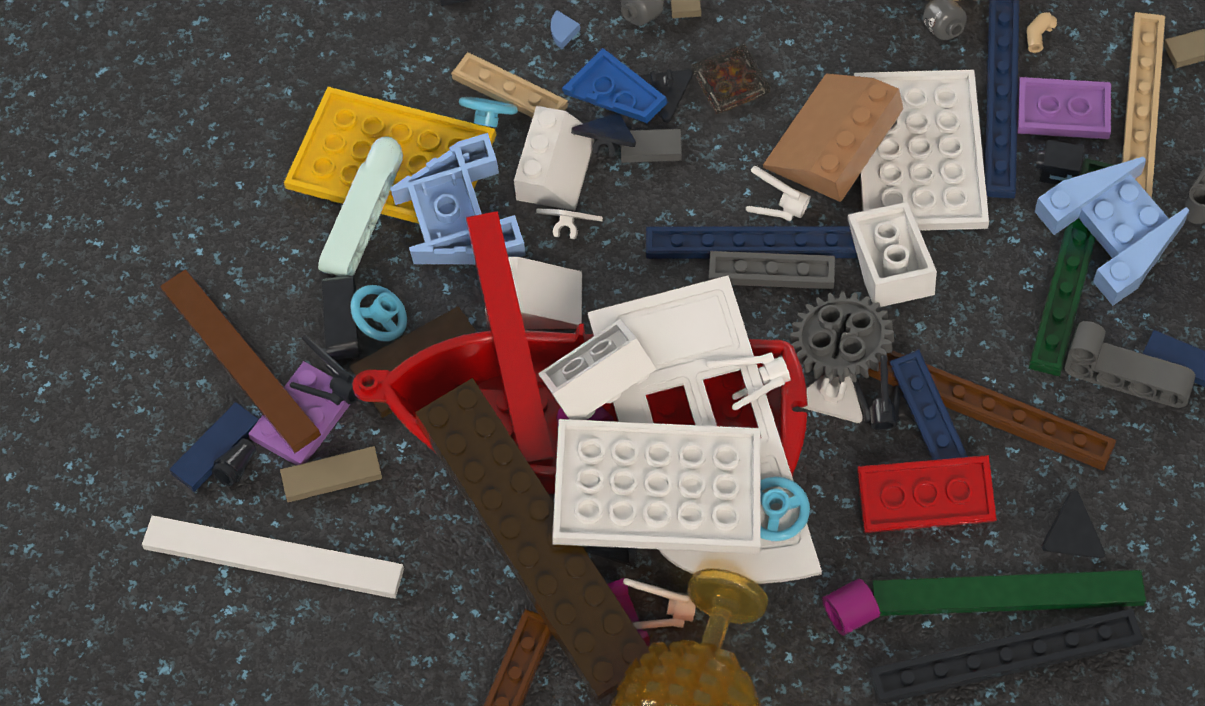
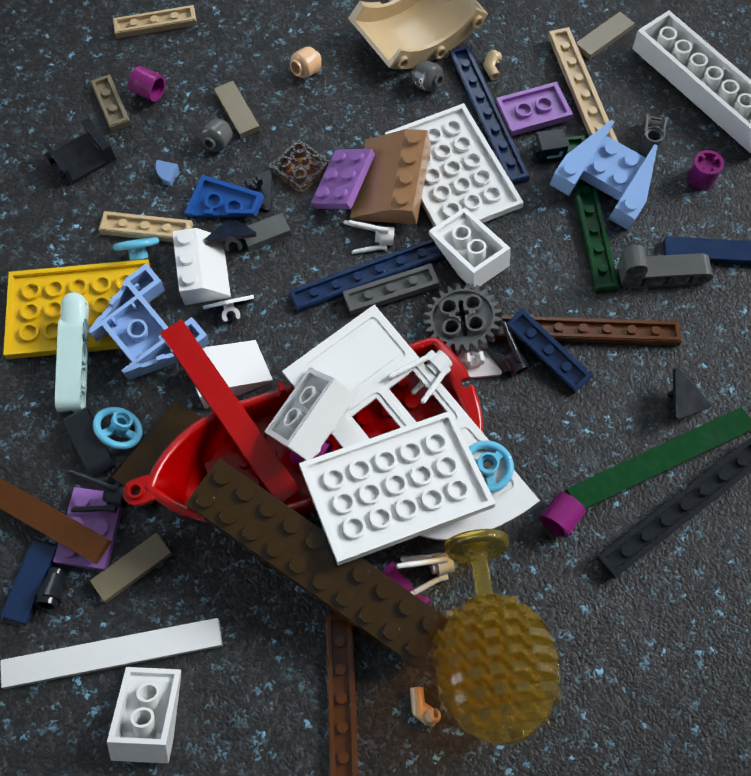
camera: 25 degrees left, 5 degrees up
(281, 634) = (145, 715): none -> white slope
(773, 113) = (343, 179): none -> medium lavender plate
(926, 494) = (573, 410): red tile -> none

